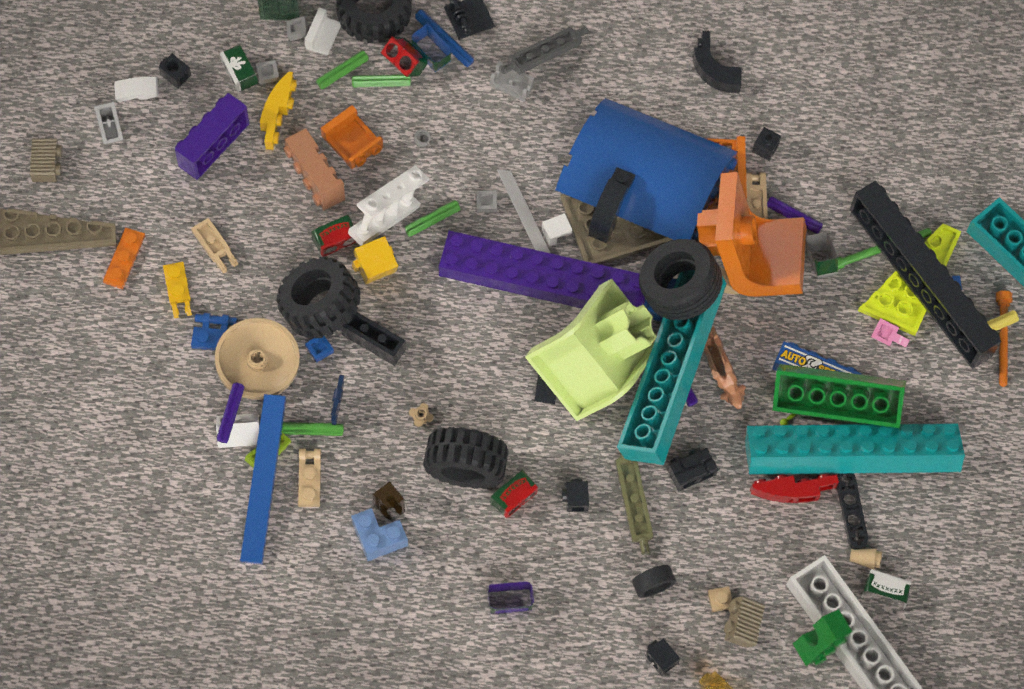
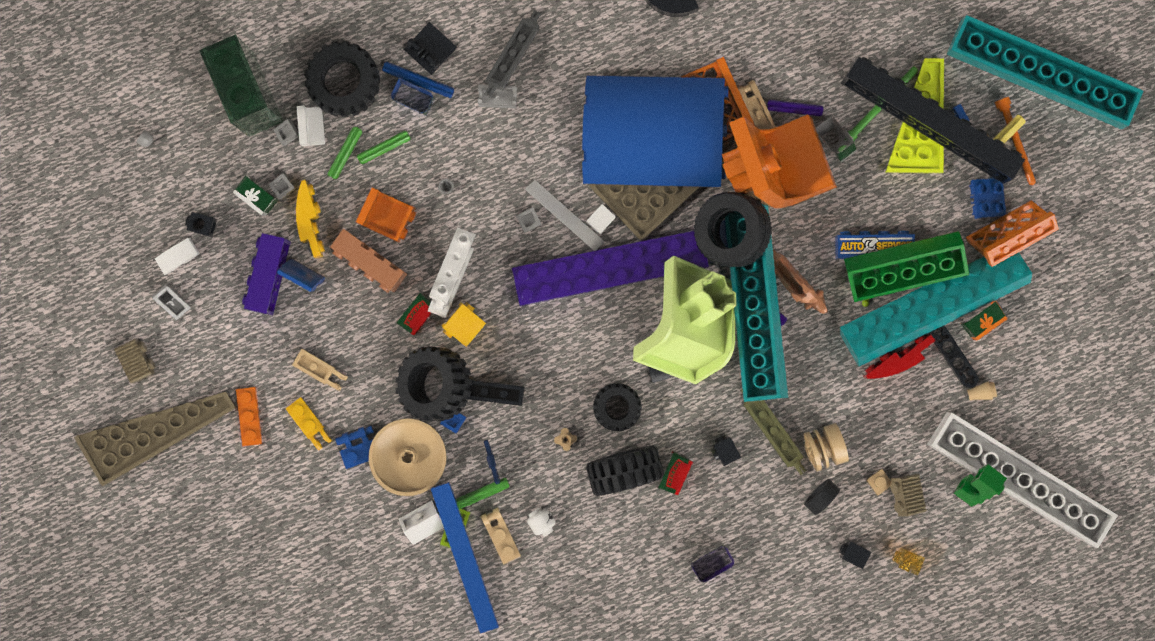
camera: 20 degrees left, 20 degrees up
(230, 413) = (410, 516): dark purple axle -> none
(243, 151) = (300, 275): none -> blue slope
(357, 481) = (541, 521): none -> white head
(378, 540) = (580, 566): medium blue brick -> none
(387, 498) = (576, 528): dark brown hinge -> none
(418, 60) = (394, 112): red piece -> none
(432, 218) = (490, 256): bright green axle -> none
(487, 388) = (632, 415): none -> black tyre
(609, 205) = (640, 180): black arch -> none
(680, 534) = (828, 446): none -> tan wheel
(692, 468) = (809, 382): black brick -> none
(766, 144) = (744, 53): black brick -> none
(887, 333) = (919, 182): bright pink plate -> none
(887, 586) = (1010, 413): piece -> none
(897, 486) = (985, 321): none -> dark green piece
(951, 377) = (988, 198): none -> blue hinge
(963, 415) = (1015, 239): none -> orange fence

